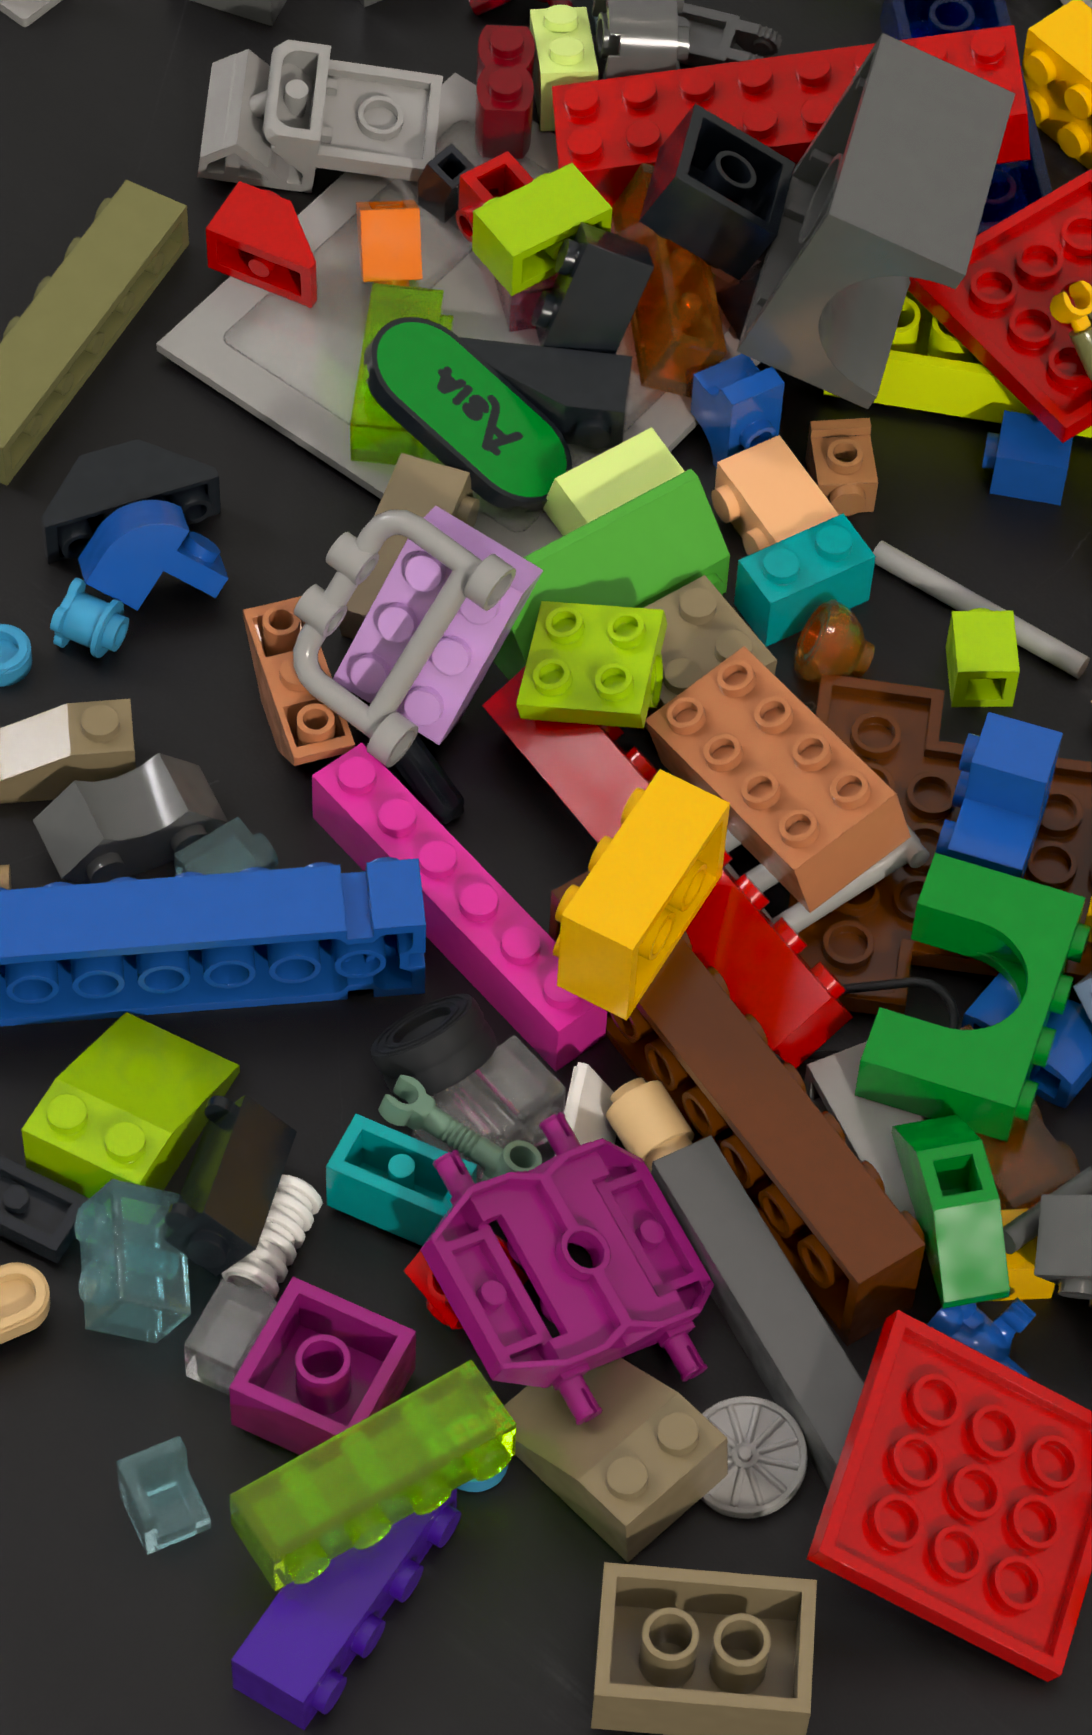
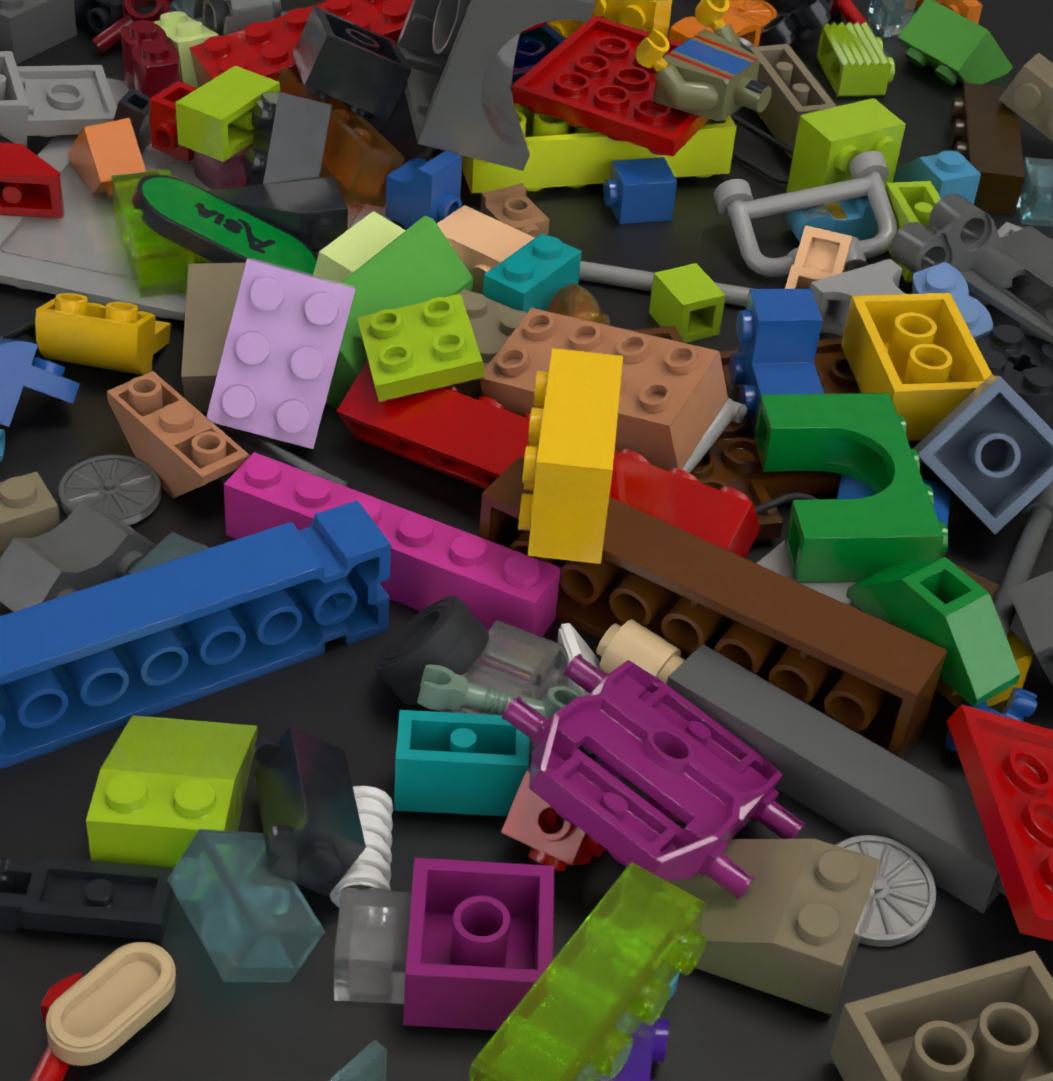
camera: 25 degrees left, 15 degrees down
(214, 723) = (112, 484): none -> dark grey wheel
(283, 507) = (99, 335): none -> yellow brick
(324, 611) = (204, 300): light grey bar -> none

